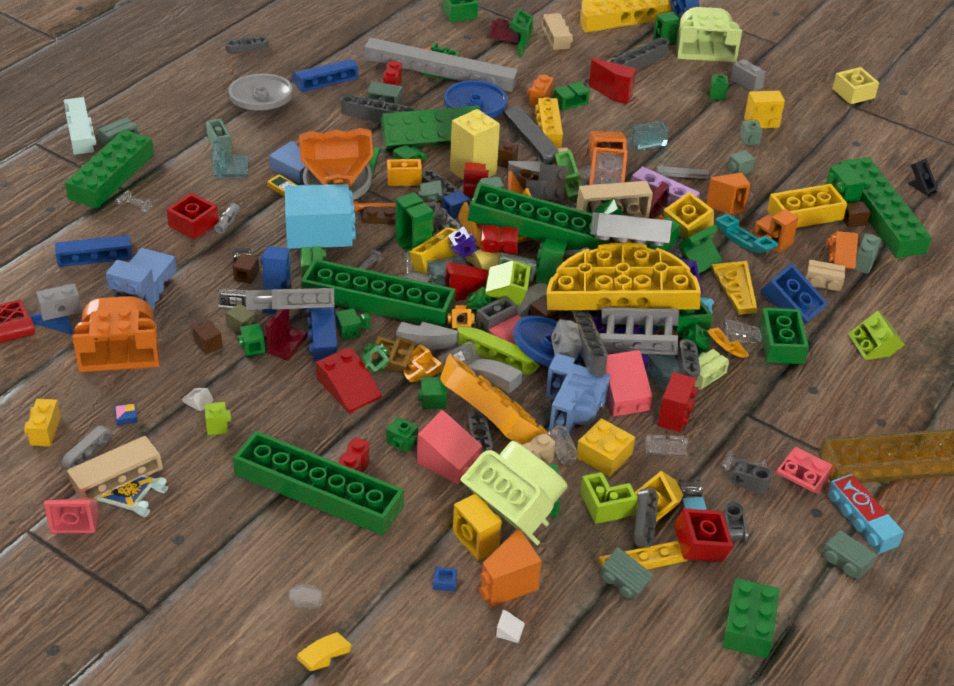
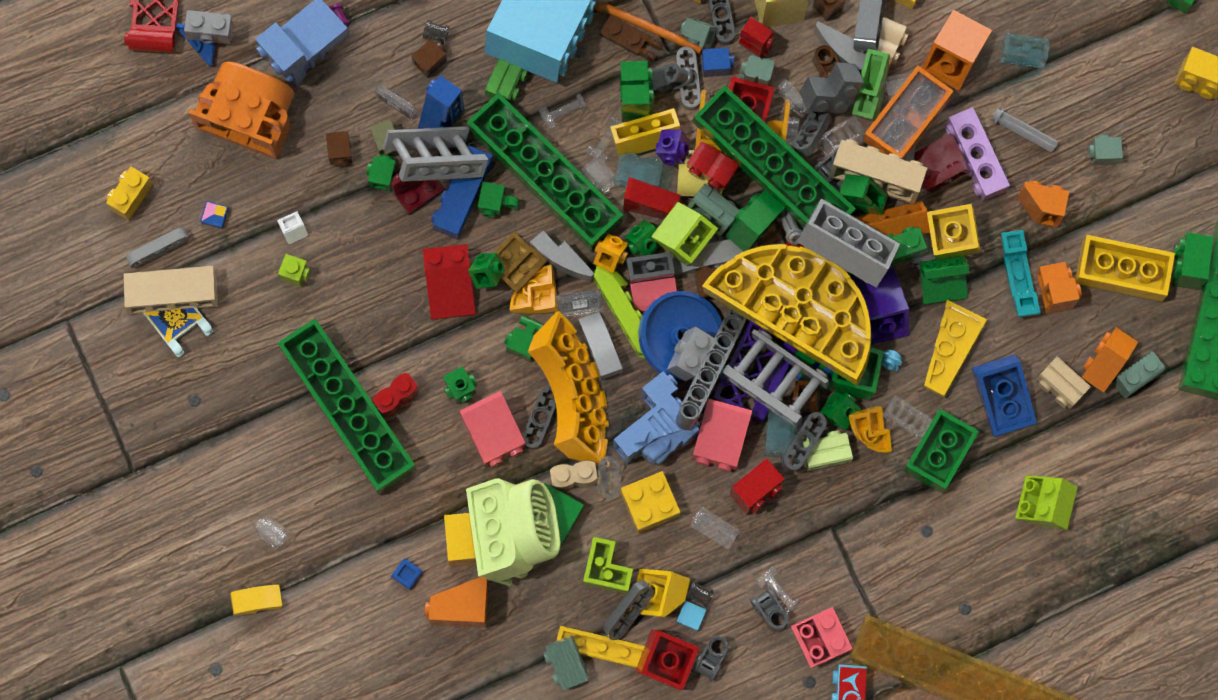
camera: 30 degrees right, 35 degrees up
(72, 515) = (111, 330): coral slope -> none
(509, 627) = (432, 658): white slope -> none
(513, 184) = (802, 64): orange slope -> none
(751, 132) = (1162, 100): sand green brick -> none
(856, 214) = (1180, 305): reddish brown brick -> none

